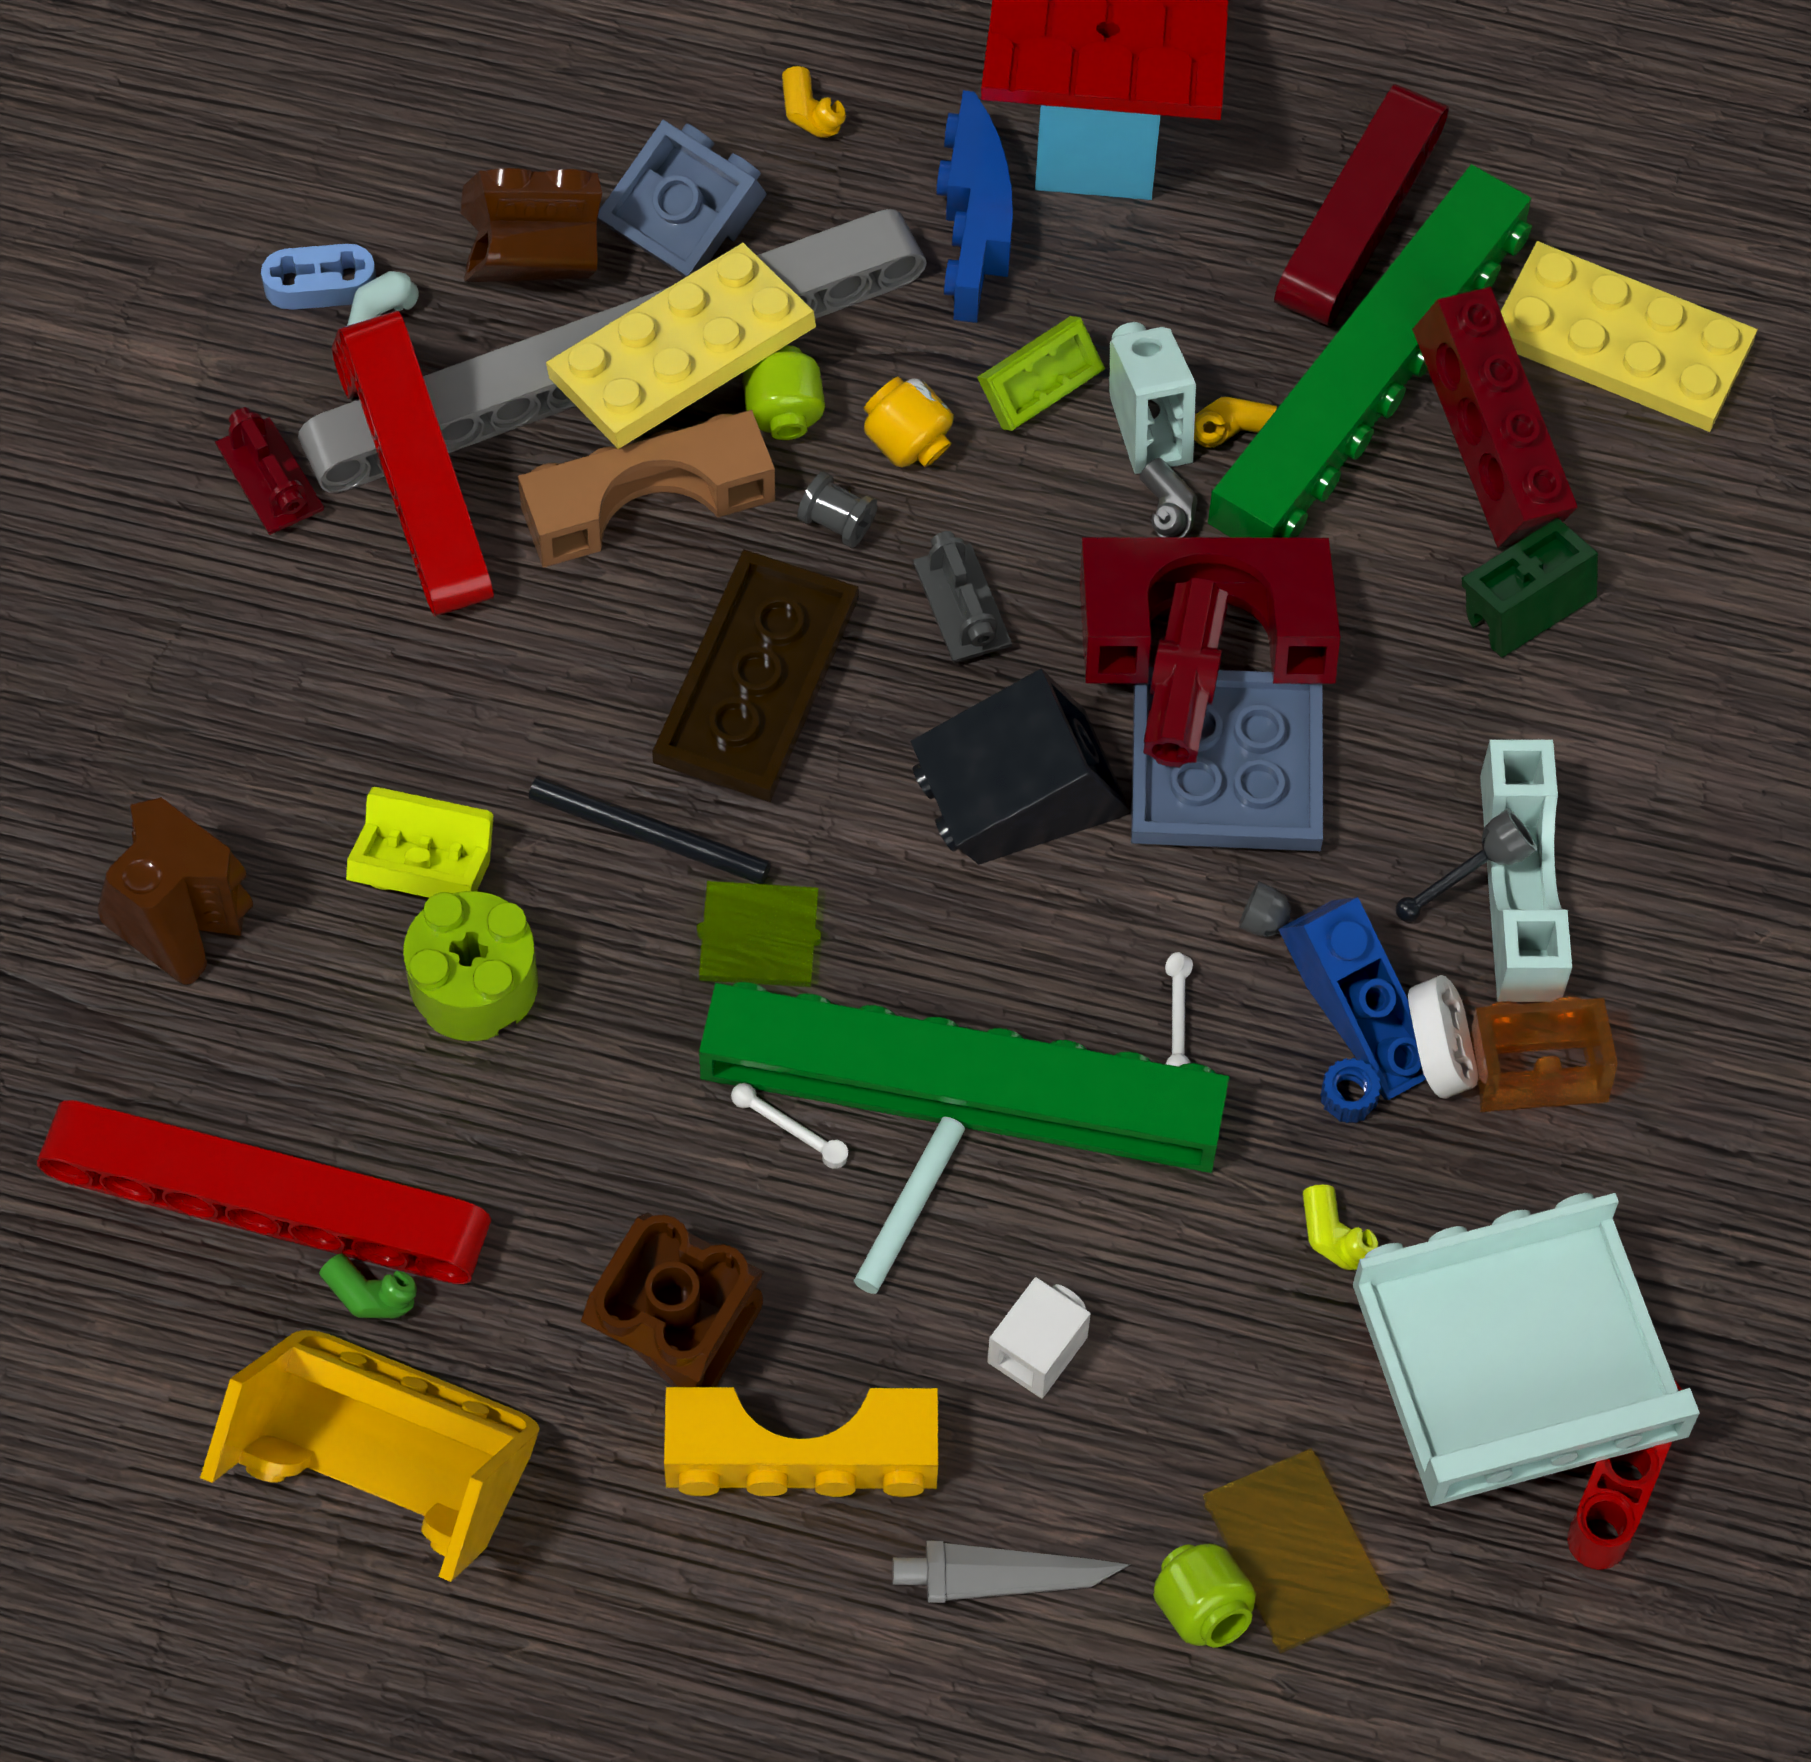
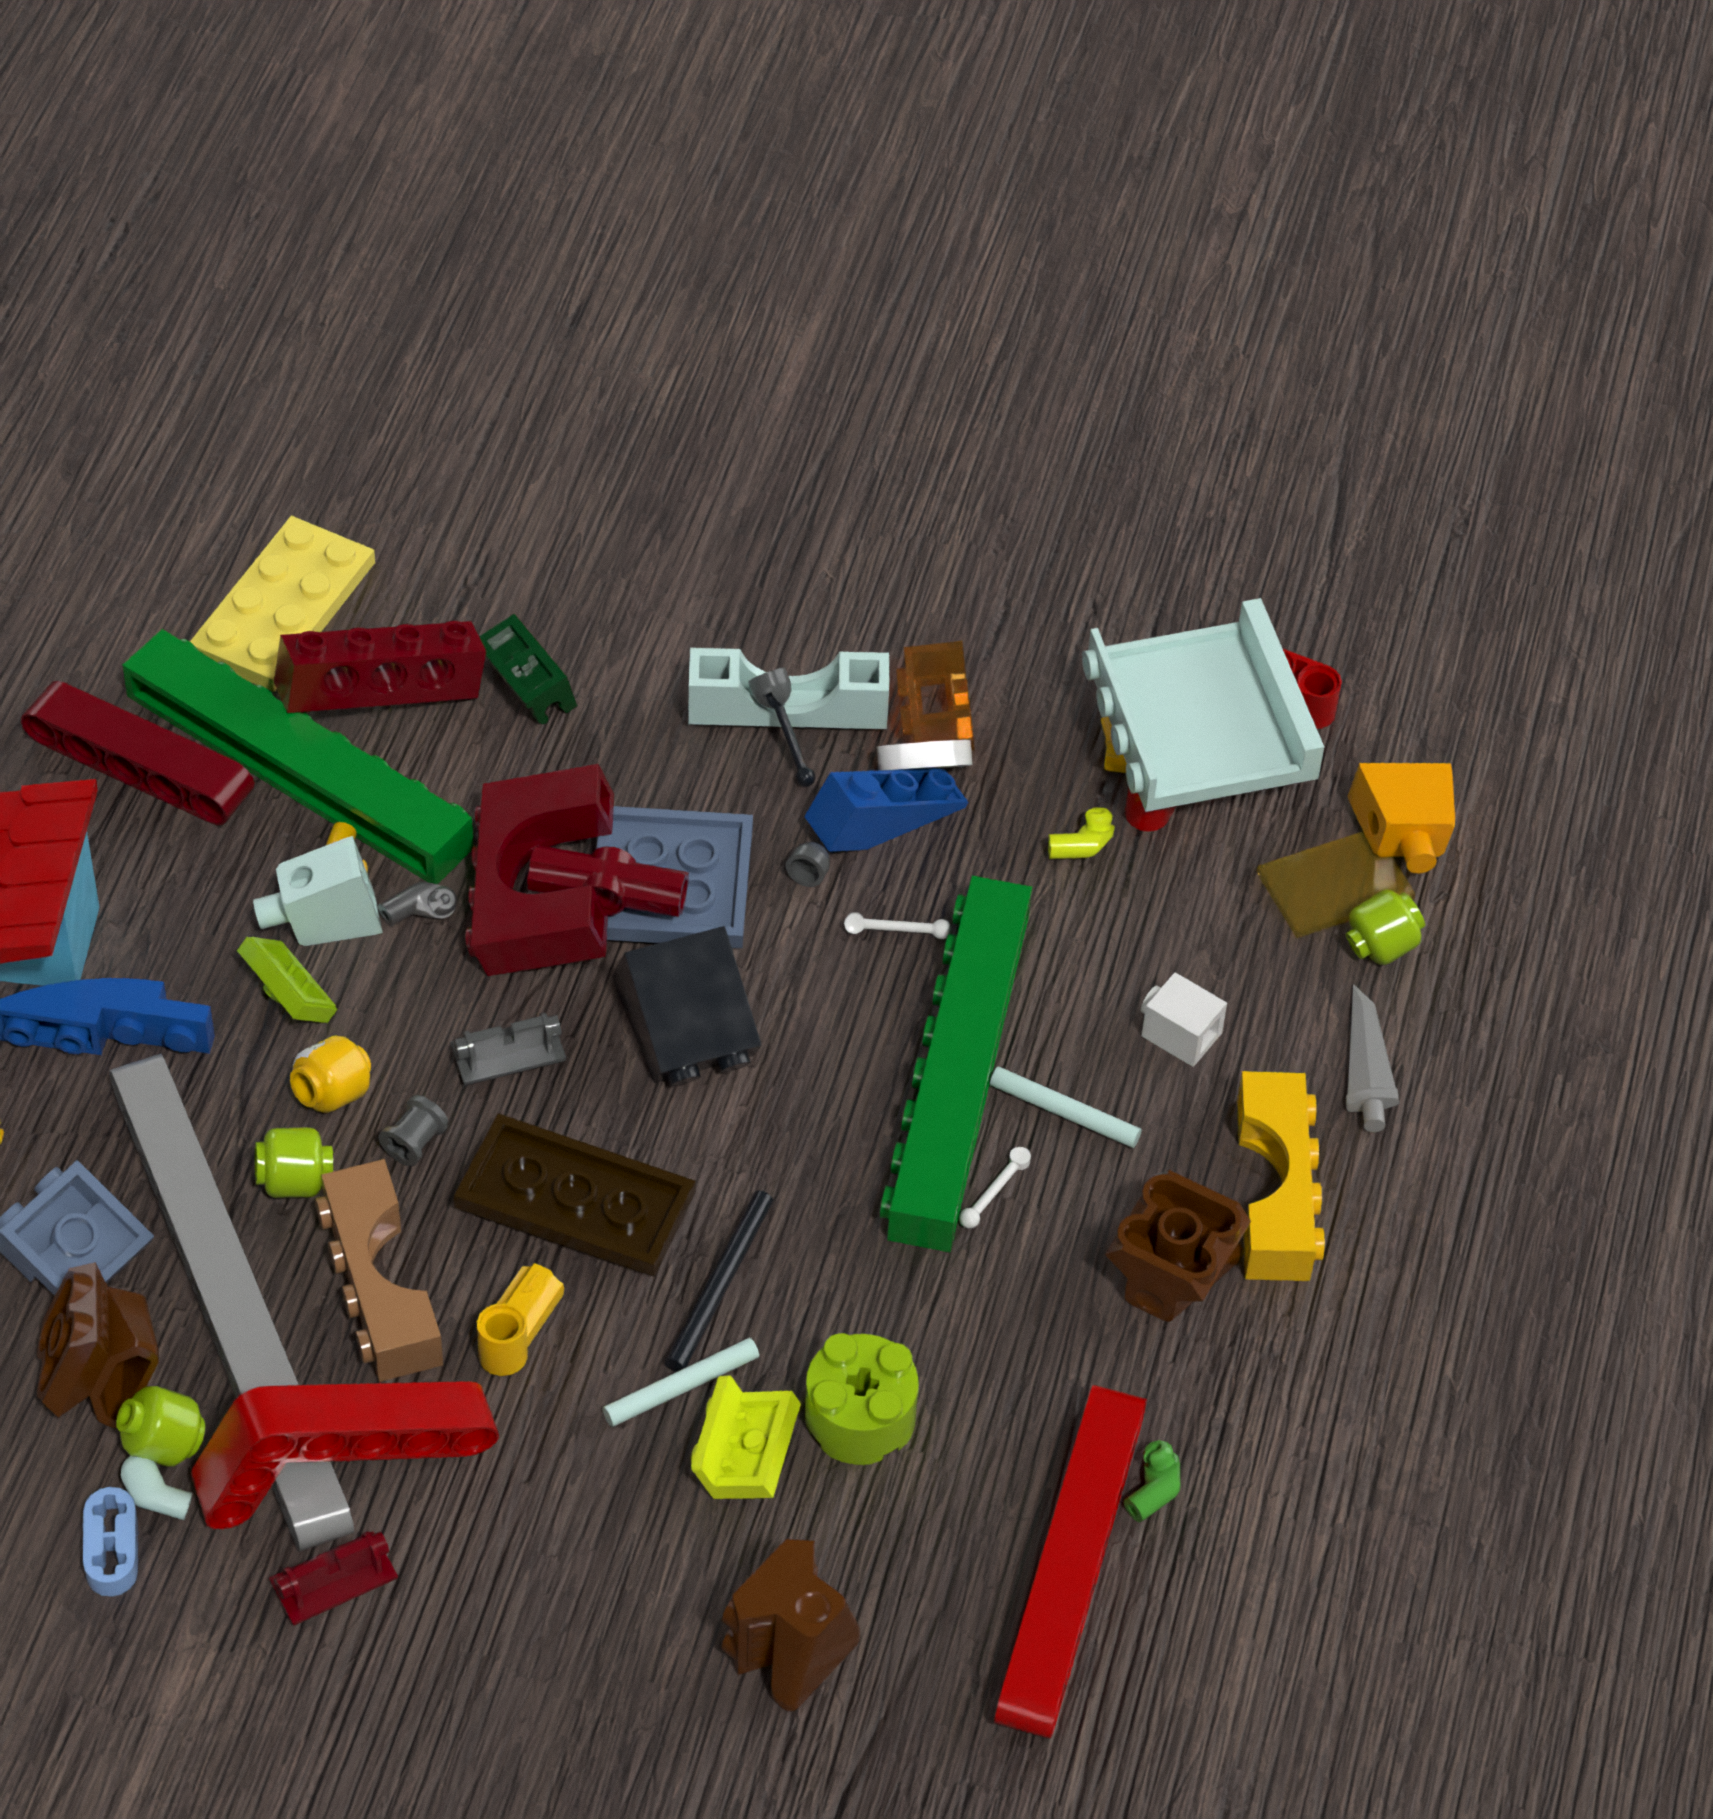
camera: 90 degrees left, 10 degrees down
(378, 1430) = (1292, 1440): yellow windscreen -> none
(438, 295) = (160, 1426): none -> lime head
(512, 795) = (680, 1382): none -> light aqua bar
(585, 623) = (517, 1319): none -> yellow piece
(680, 345) = (255, 1219): light yellow plate -> none
(758, 934) = (818, 1206): clear neon green piece -> none
(1354, 1071) = (964, 833): blue axle -> none
(1401, 1634) = (1405, 810): none -> light orange torso

